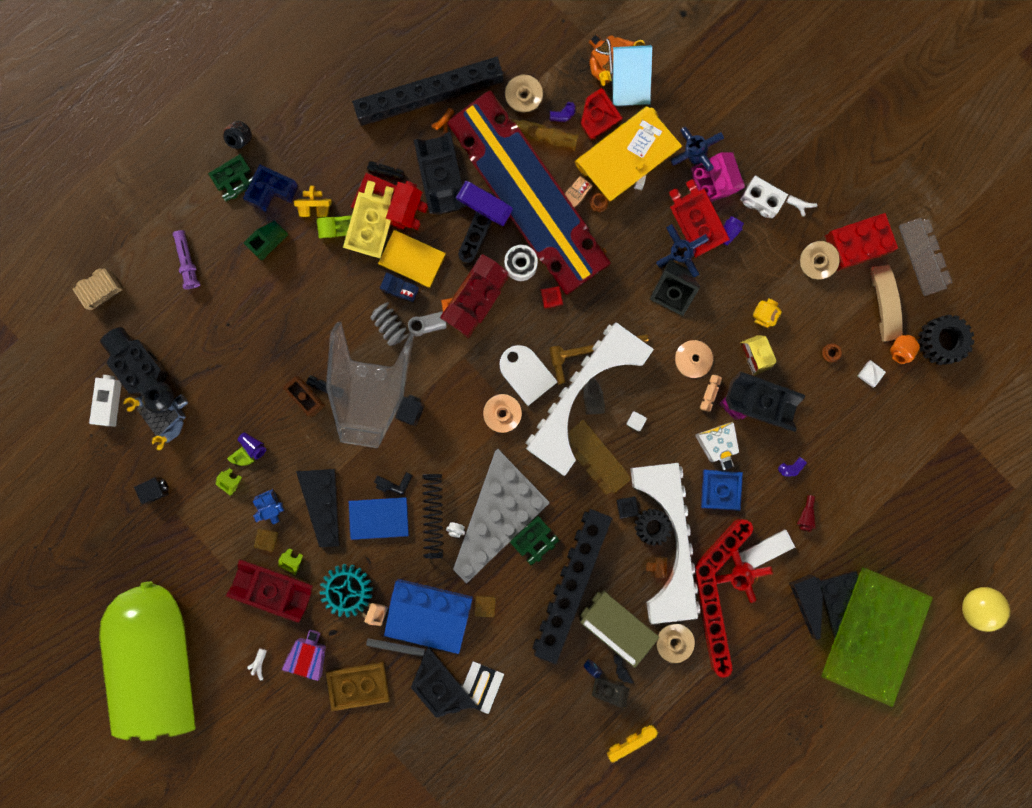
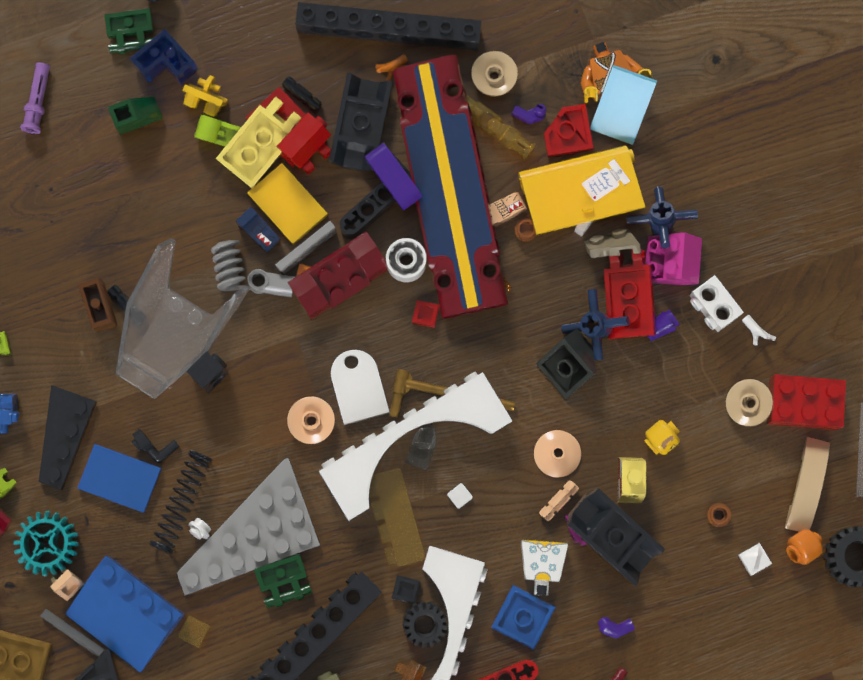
camera: 30 degrees right, 5 degrees down
(252, 446) = (15, 335): dark purple cone -> none
(441, 286) = (306, 248): none -> light grey tile
(668, 185) = (611, 244): none -> dark tan wing

